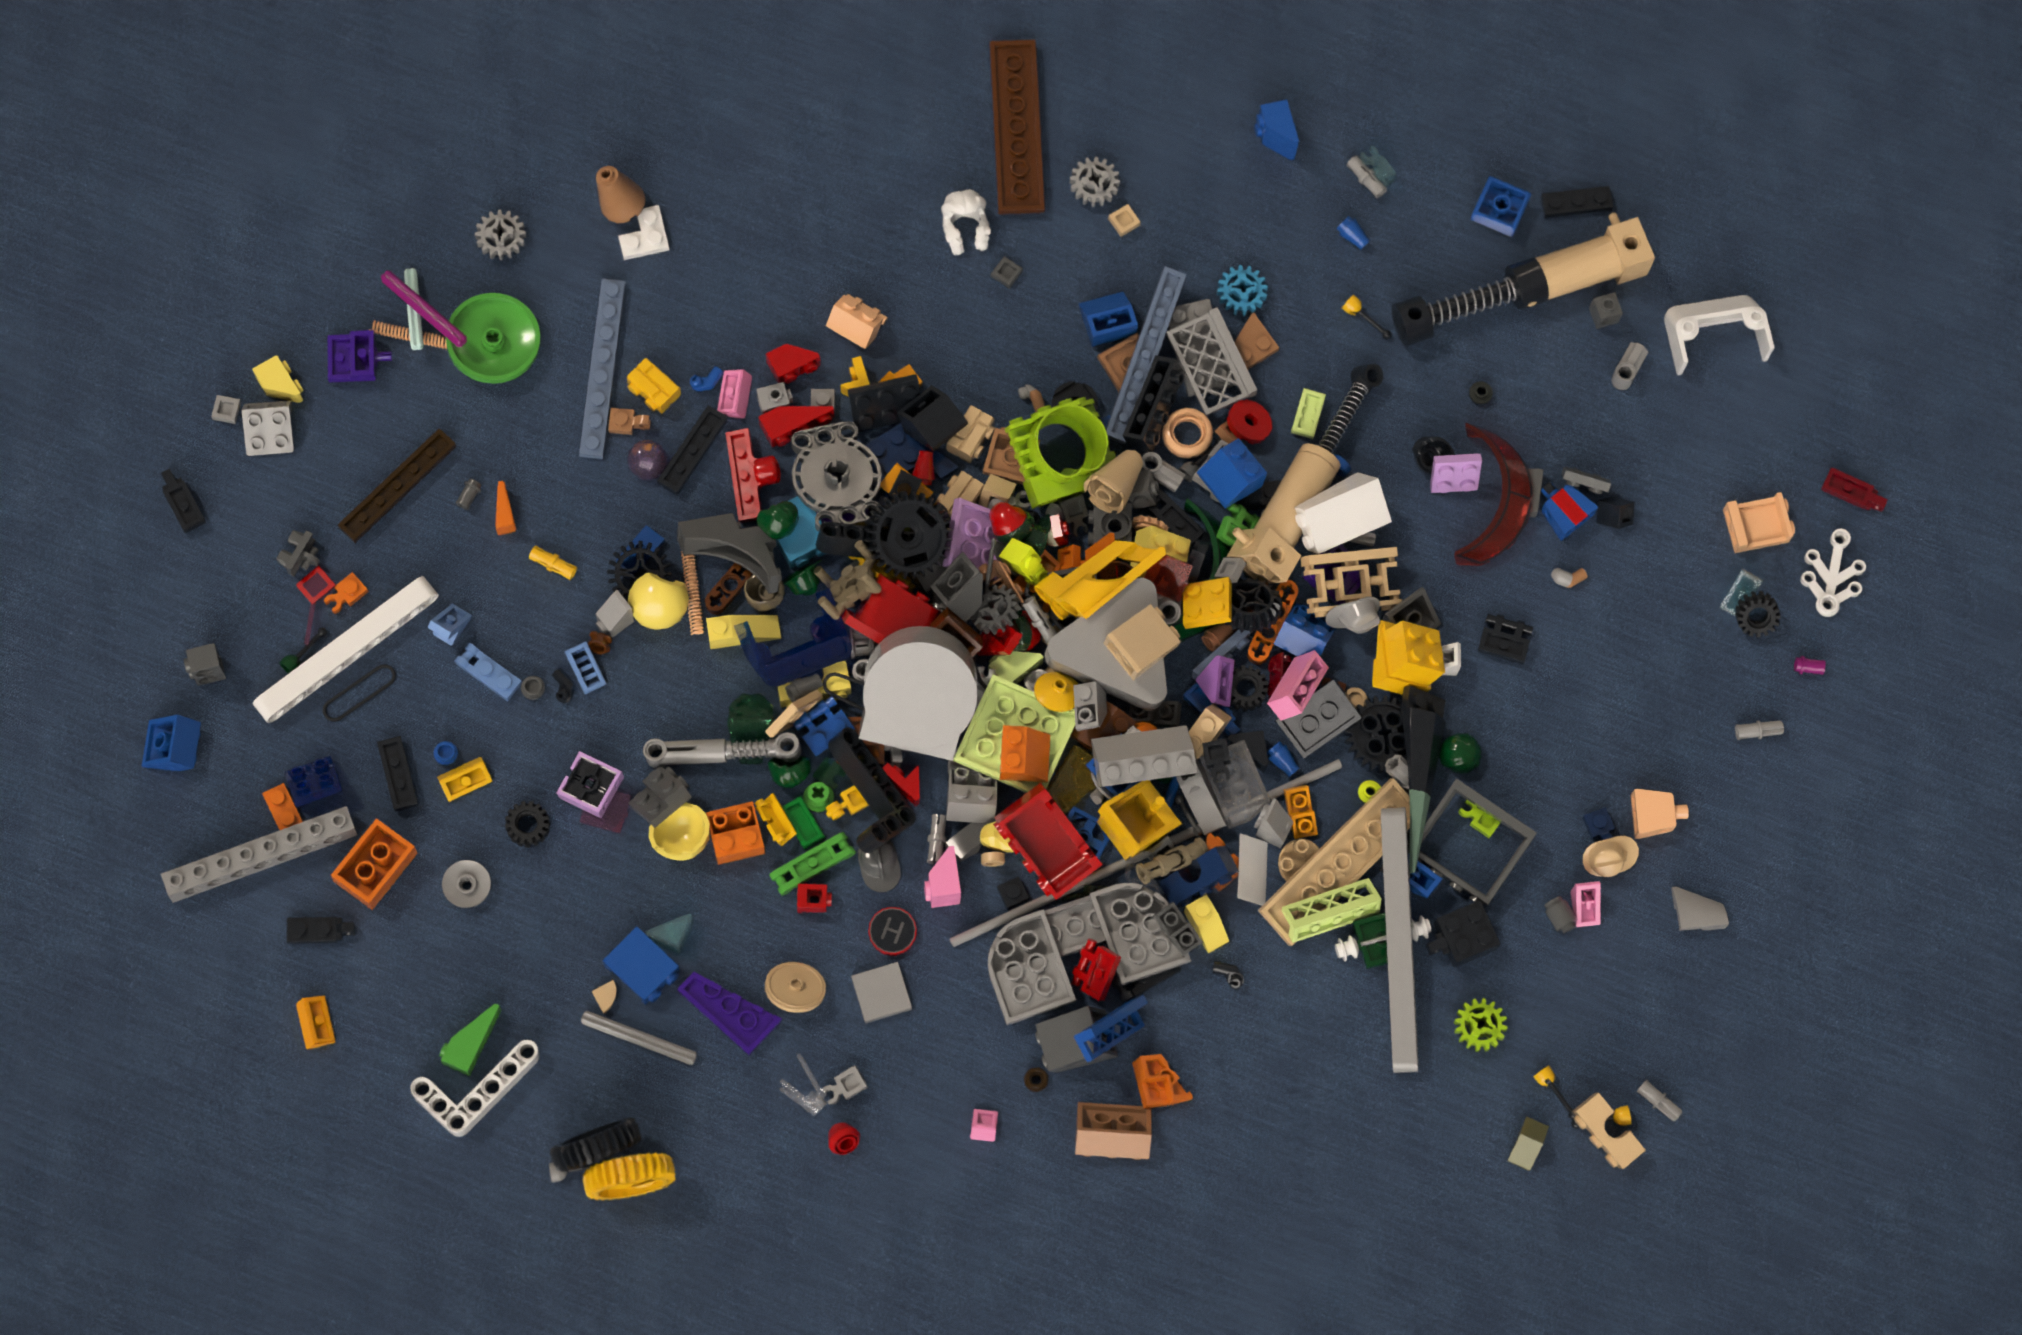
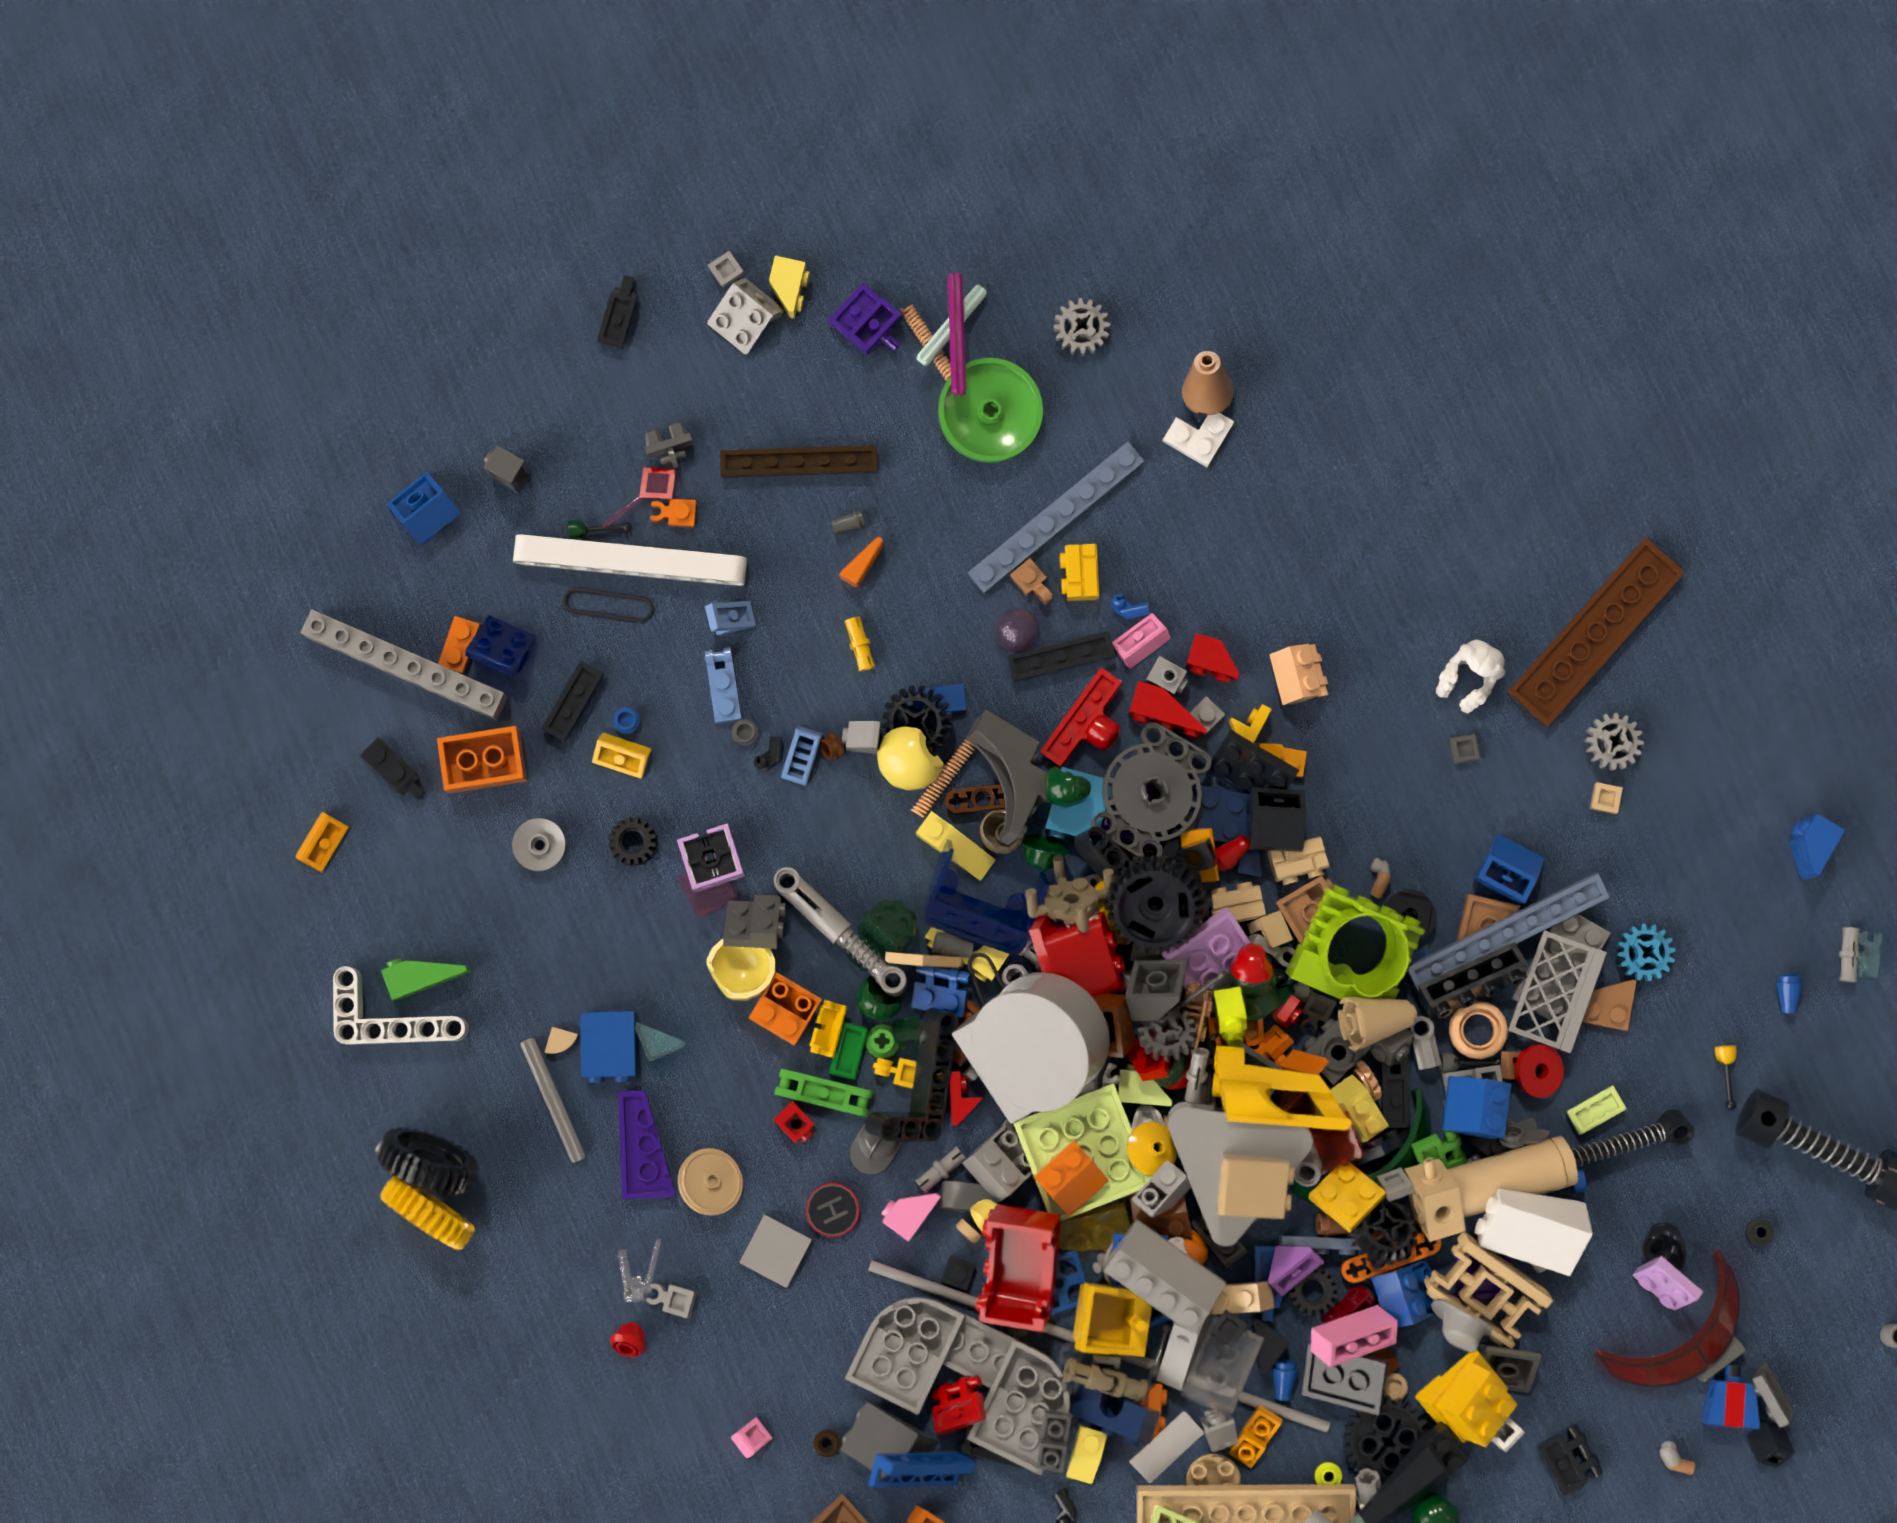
camera: 50 degrees right, 10 degrees up
(1277, 468) = (1523, 1133): none -> dark grey plate

